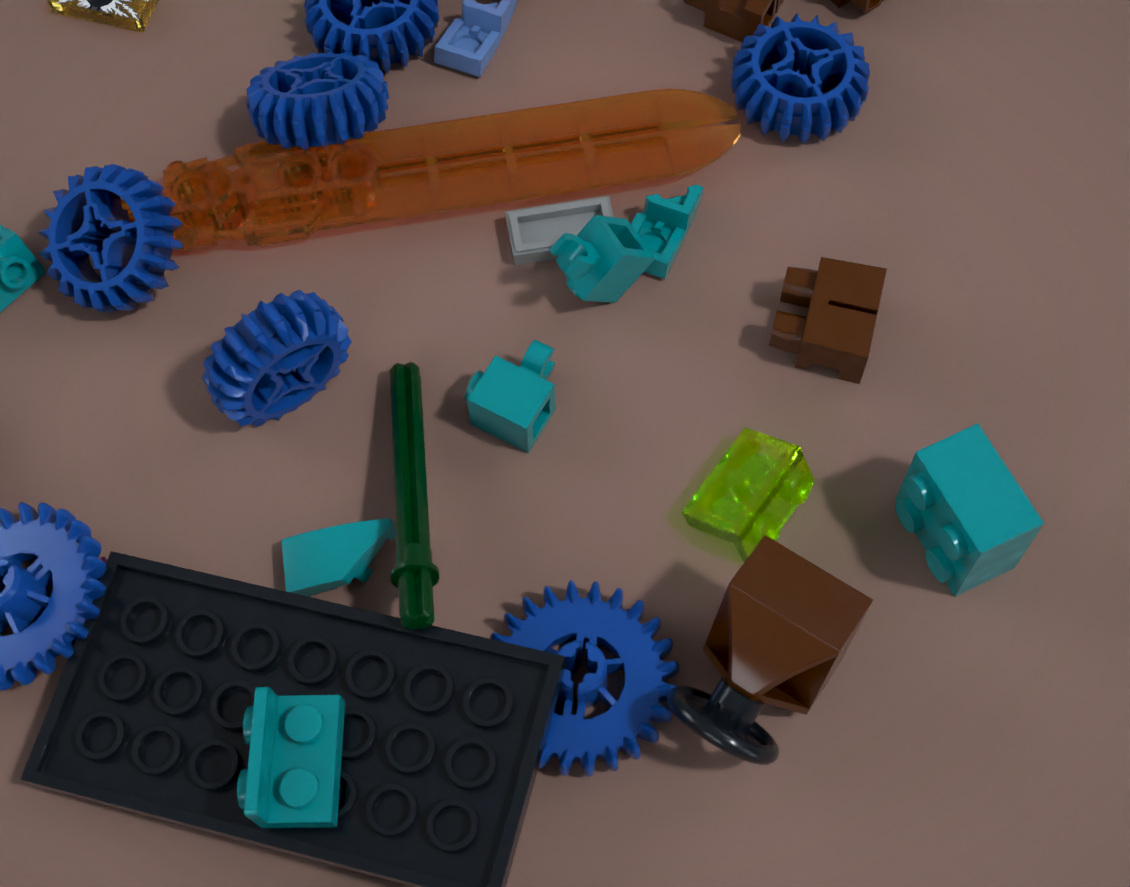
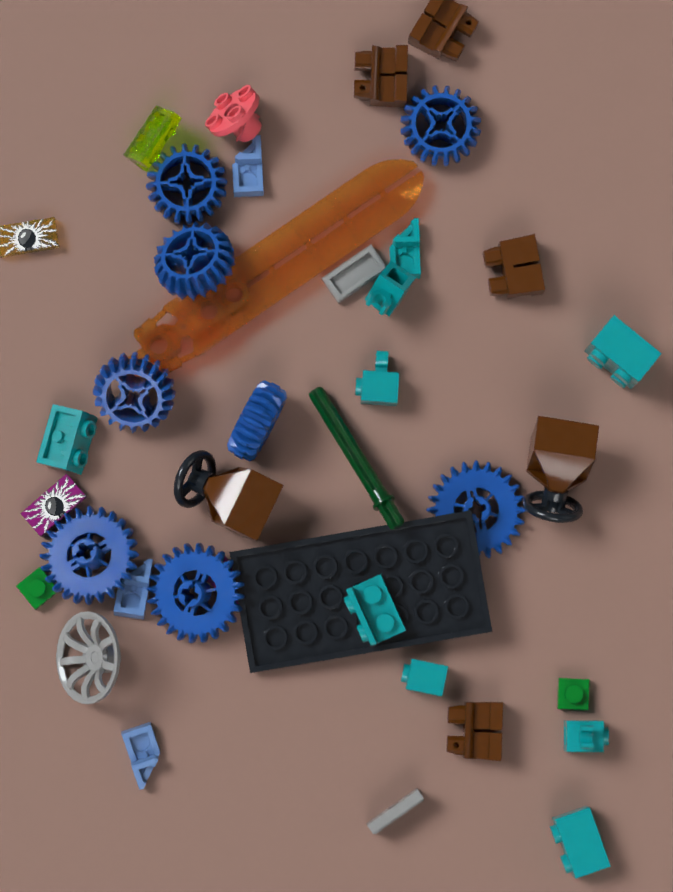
camera: 30 degrees left, 20 degrees up
(166, 455) = (235, 498): none -> reddish brown piece
(333, 555) = (332, 504): teal slope -> none
(751, 491) = (515, 382): clear neon green bracket -> none

